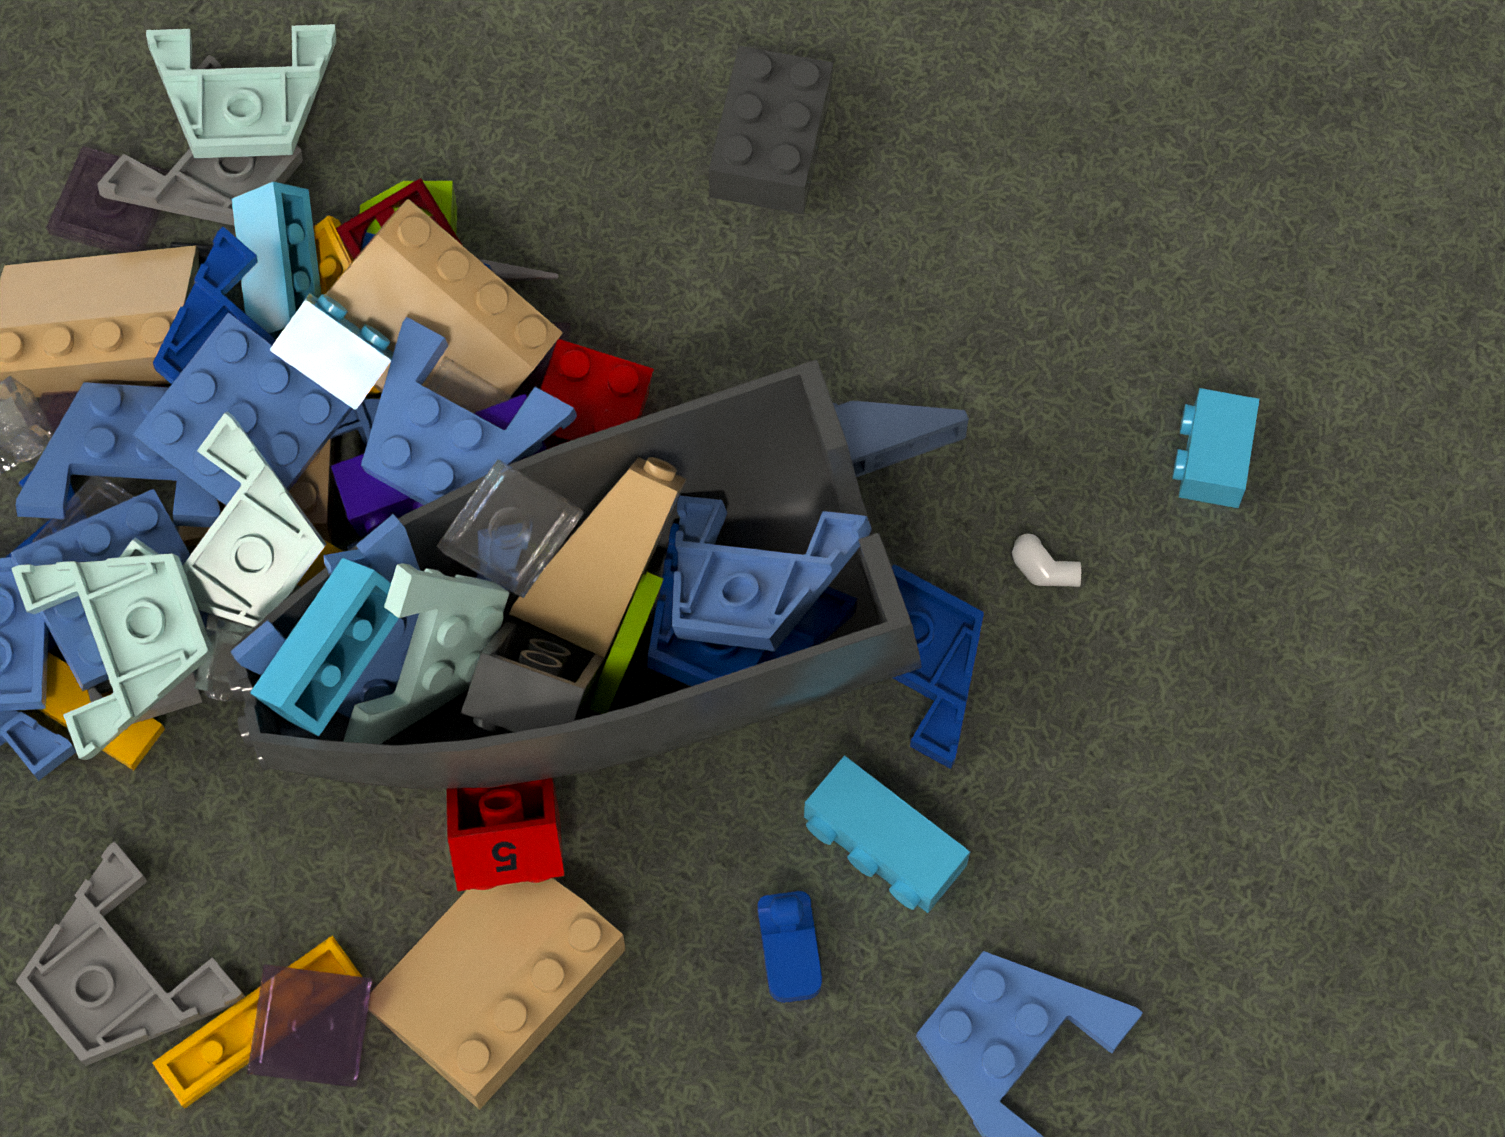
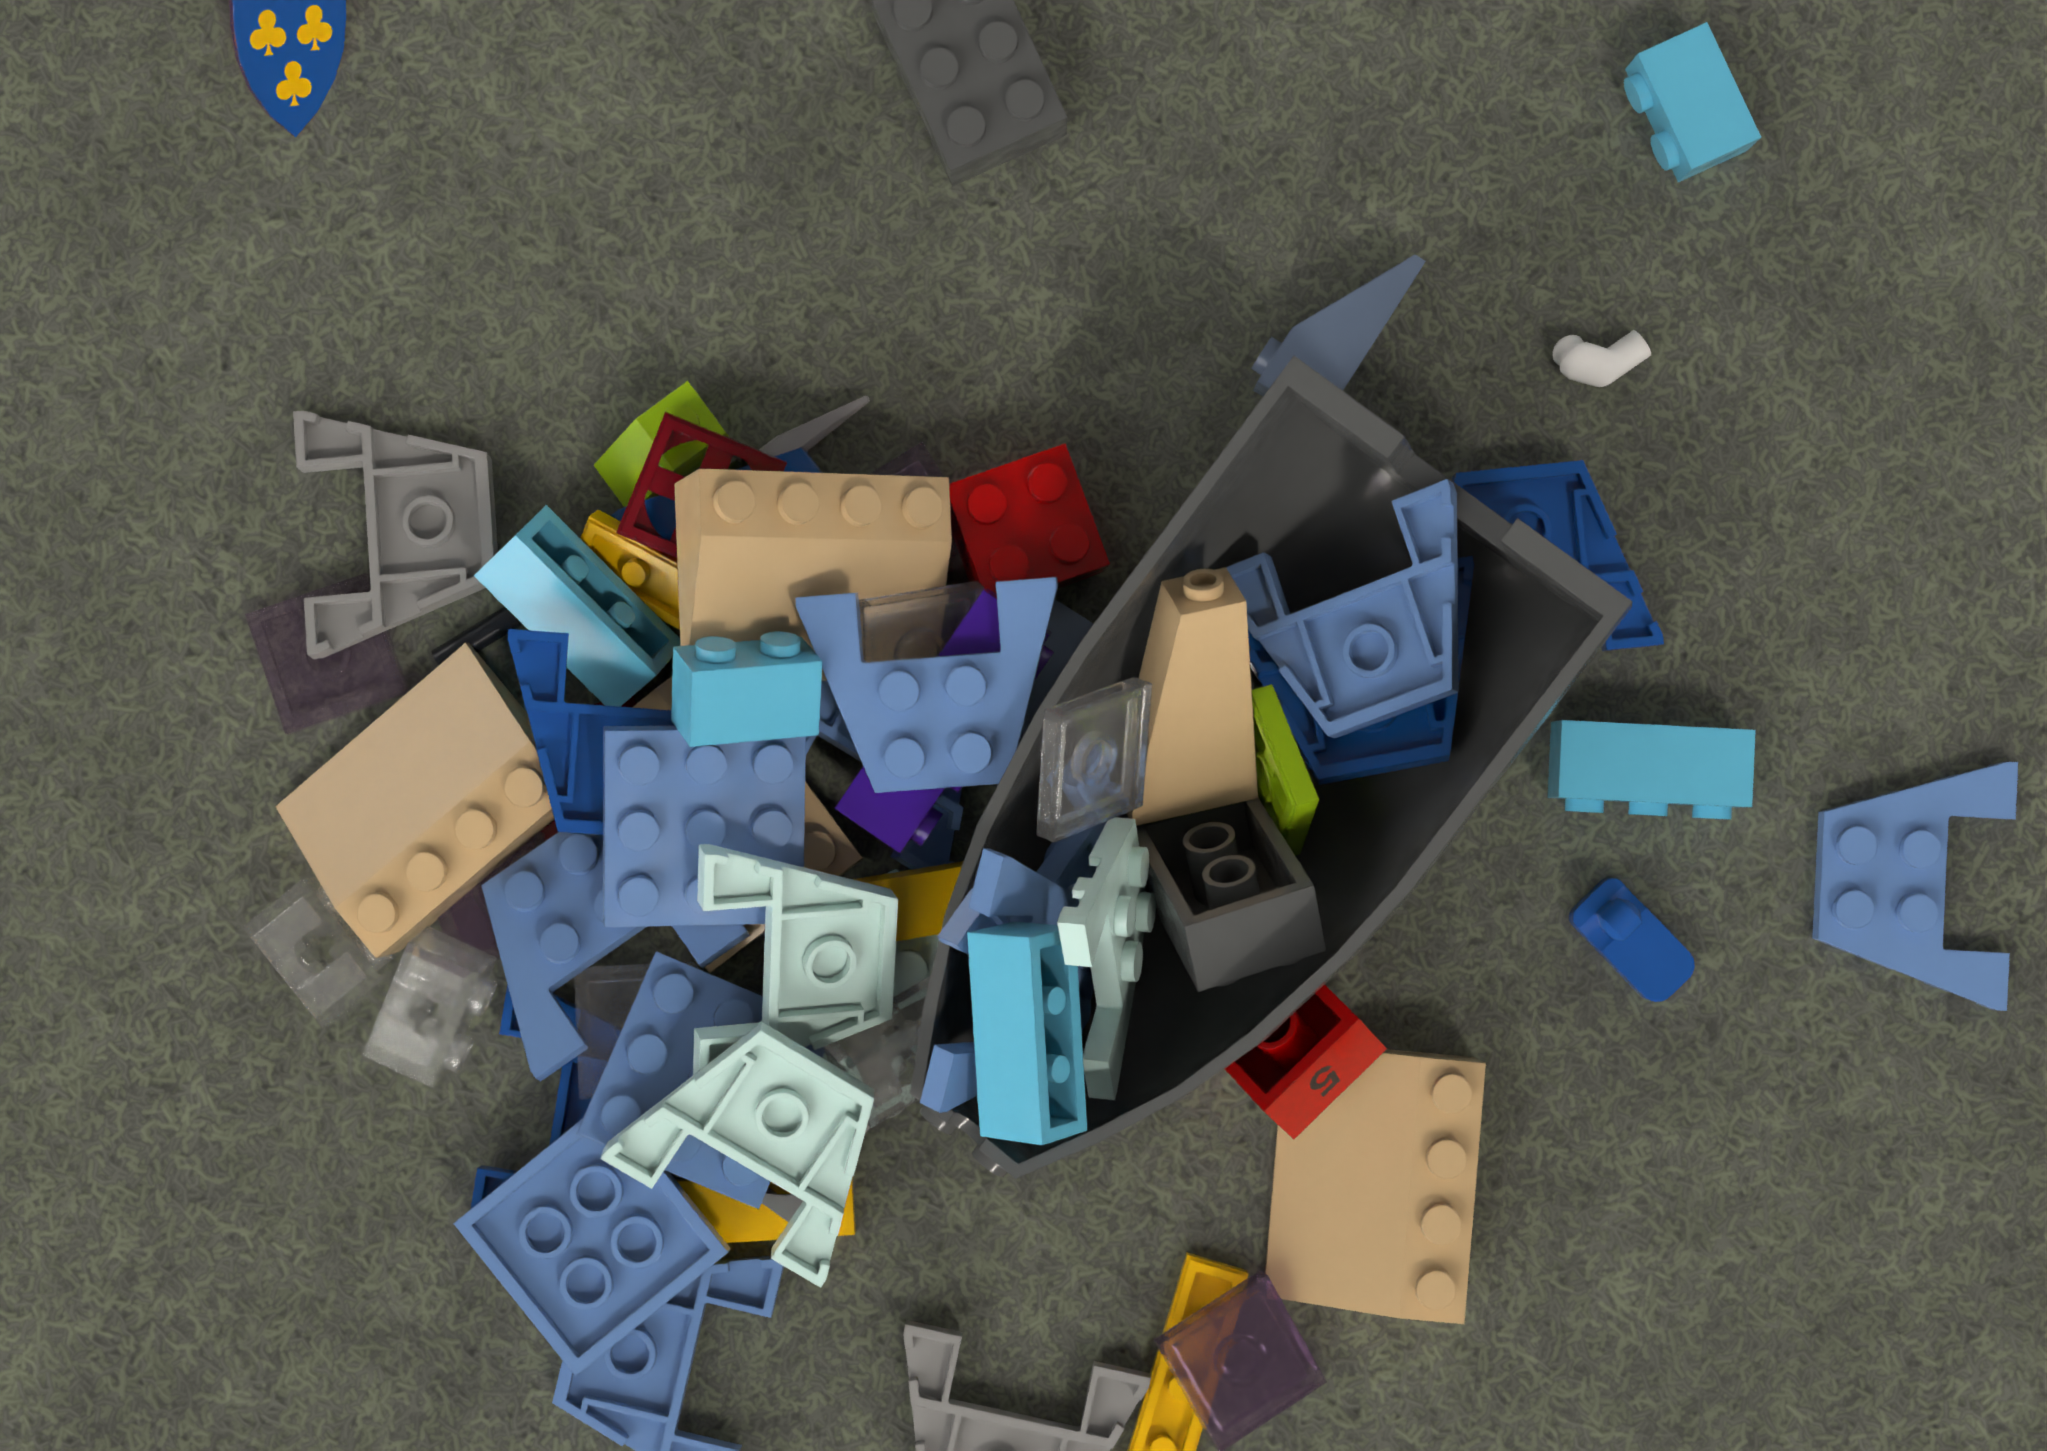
camera: 35 degrees left, 20 degrees up
(242, 108) = (391, 454): light aqua wing -> none

